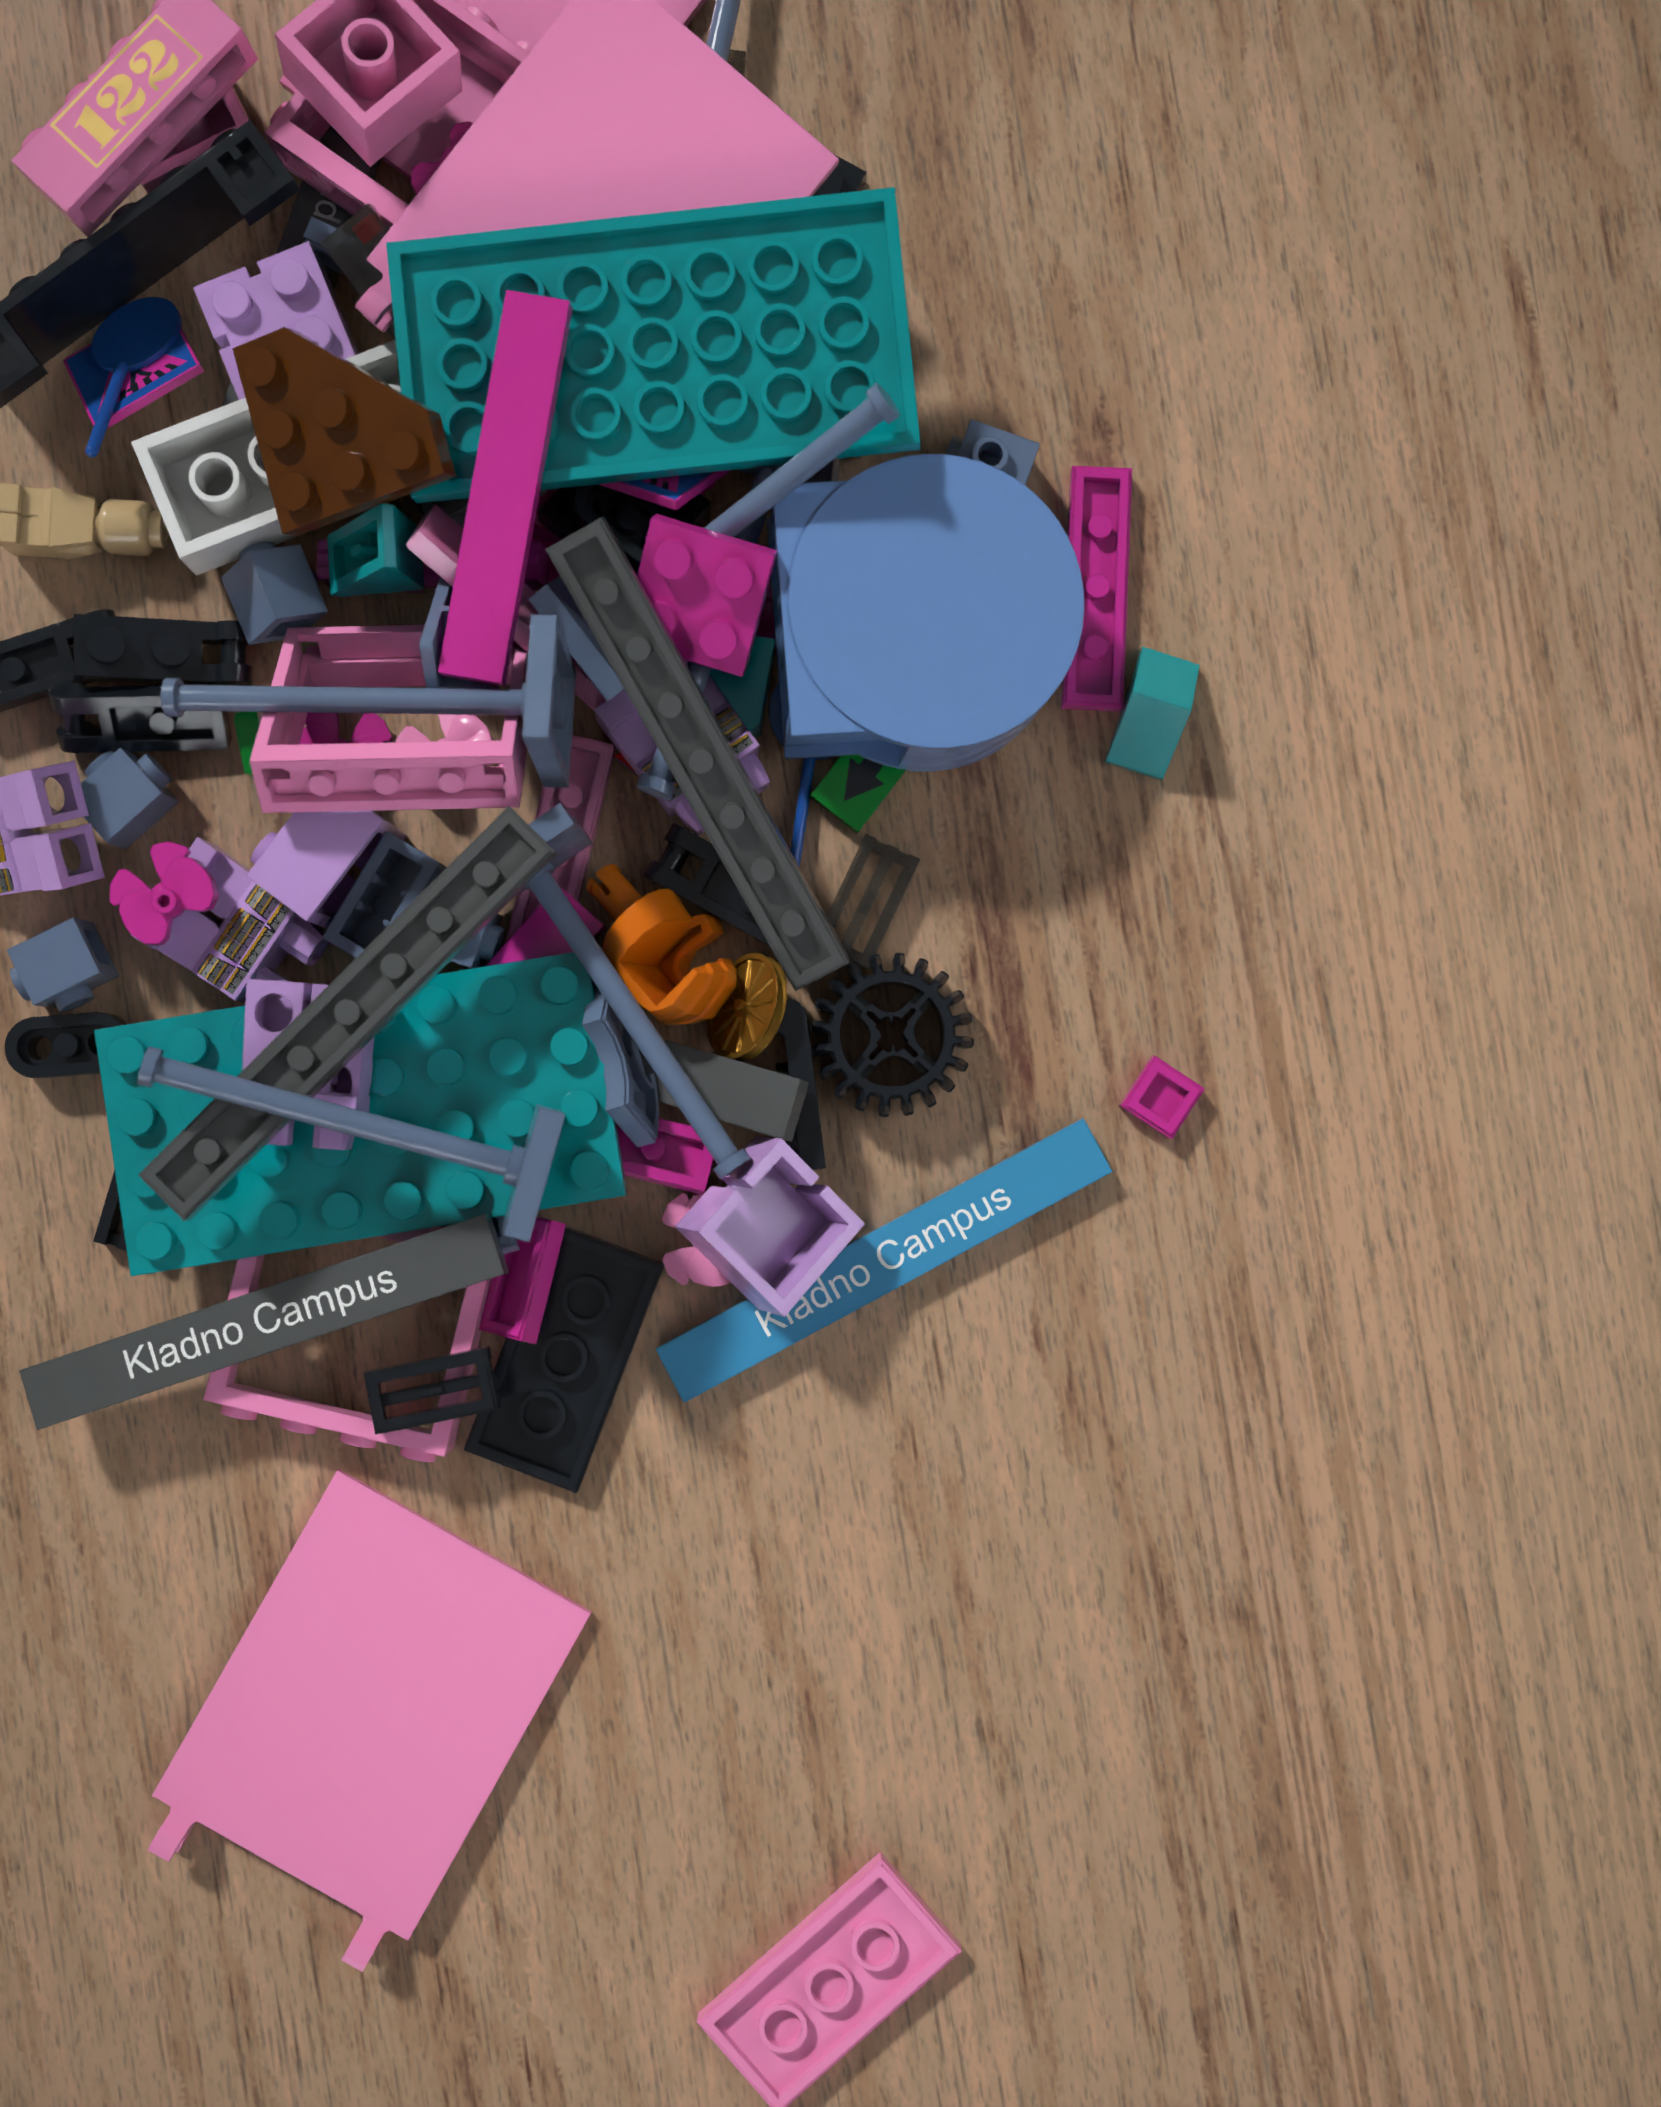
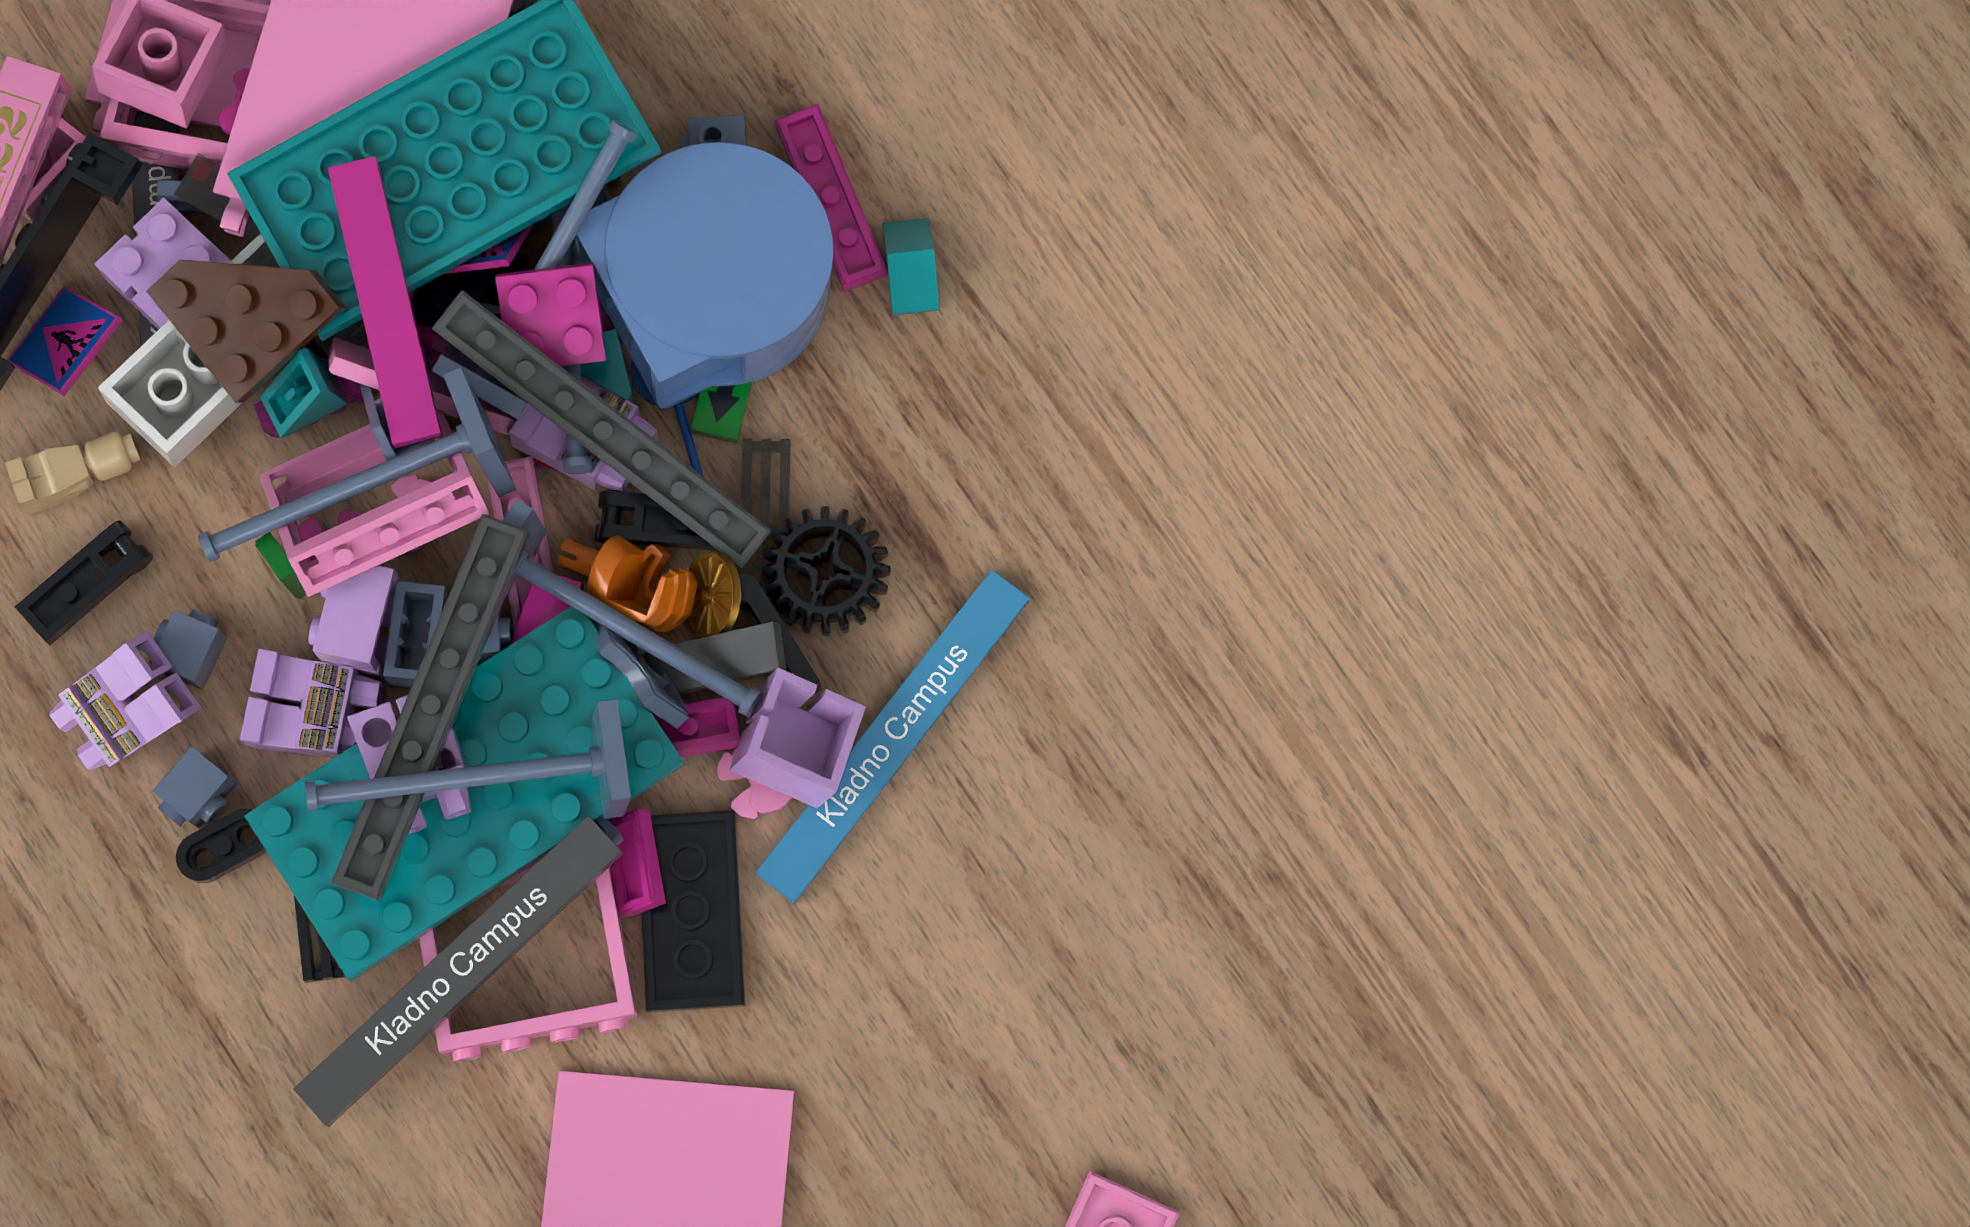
camera: 25 degrees left, 10 degrees down
(128, 342) = (53, 324): blue piece -> none
(131, 720) = (174, 586): black plate -> none
(158, 649) = (166, 532): black plate -> none
(183, 887) = (249, 713): dark pink piece -> none
(273, 591) = (237, 454): sand blue brick -> none
(485, 1379) = (616, 981): black tile -> none
(1161, 1097) = (1041, 531): dark pink tile -> none

